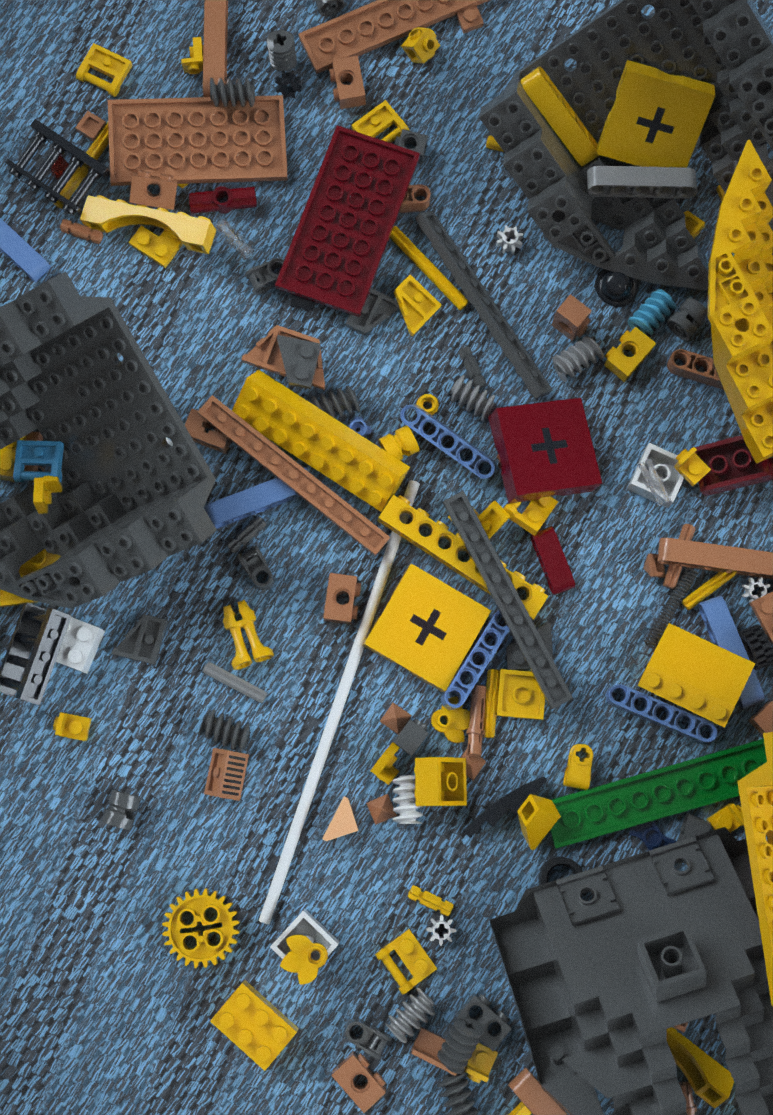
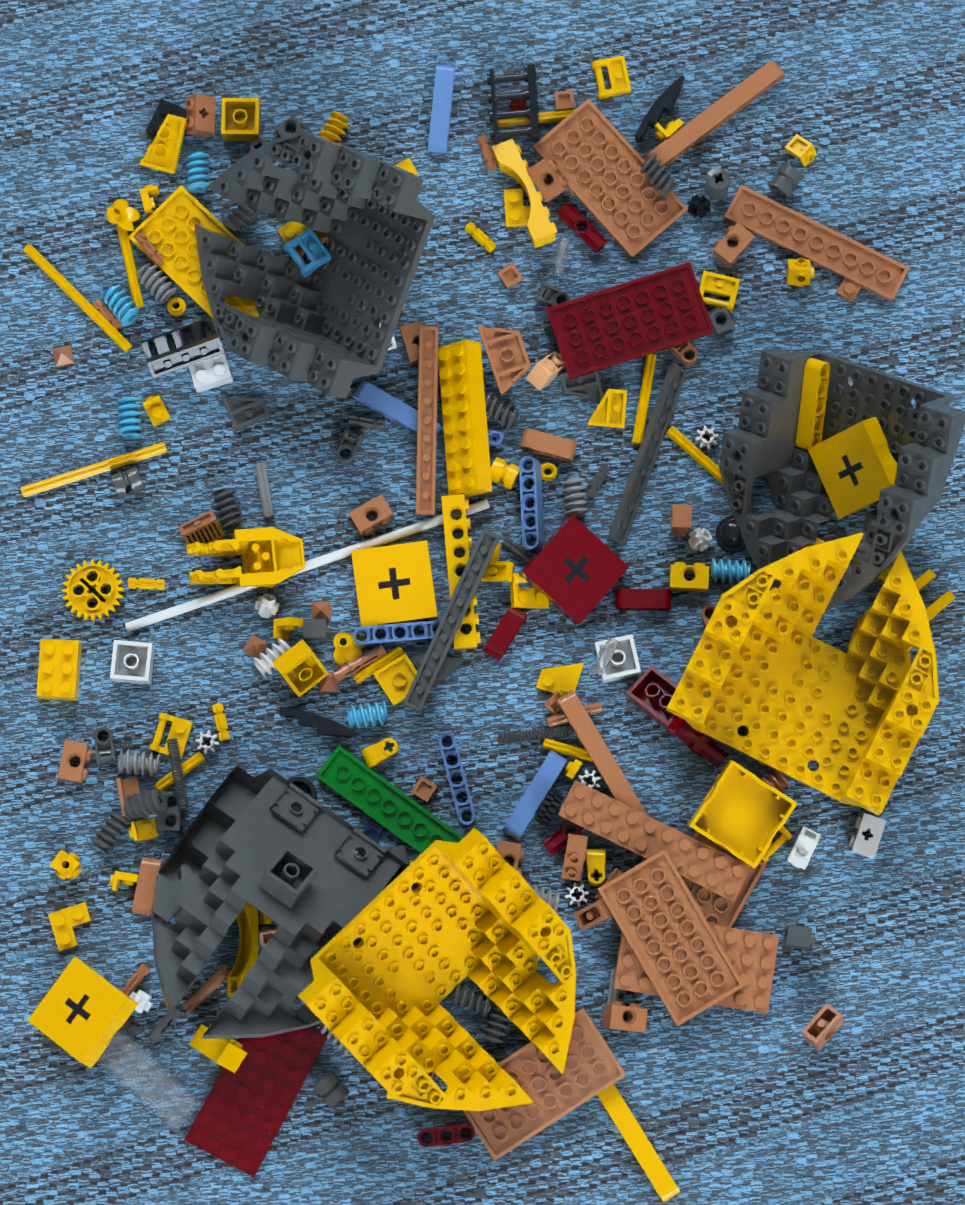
camera: 55 degrees right, 0 degrees up
(42, 492) = (288, 271): yellow bracket -> none
(57, 758) = (128, 417): none -> medium azure piece
(80, 834) = (93, 469): none -> yellow axle
(155, 297) = (480, 237): none -> yellow axle
(169, 47) = (663, 104): none -> black slope
(215, 298) = (510, 276): none -> nougat plate
(235, 868) = (146, 583): none -> yellow axle
(259, 651) = (295, 489): yellow piece -> none
(299, 360) = (505, 364): dark grey wing -> none
(300, 959) = (121, 663): yellow plate -> none
(305, 731) = (266, 558): none -> yellow connector
(331, 332) = (546, 370): none -> light nougat slope
(342, 822) = (227, 627): light nougat slope -> none
(351, 767) = (267, 605): none -> white gear
(403, 385) = (548, 445): none -> nougat beam
(449, 981) = (187, 766): none -> yellow axle
(478, 1000) = (178, 772): none -> dark grey piece
(484, 488) = (516, 550): none -> dark grey axle
(521, 260) = (695, 453): none -> yellow axle
(534, 751) = (367, 715): none -> medium azure piece
(536, 819) = (324, 747): yellow slope -> none
(576, 356) = (657, 544): light grey piece -> none
(602, 316) = (700, 539): none -> white gear
(618, 410) = (643, 599): none -> dark red beam
(635, 544) = (560, 679): none -> yellow wing
(641, 182) = (810, 493): light grey beam -> none
(646, 752) = (424, 789): none -> nougat plate
(691, 466) = (636, 672): yellow bracket -> none
(696, 675) = (498, 781): yellow slope -> none
(733, 597) = (572, 769): none -> yellow plate

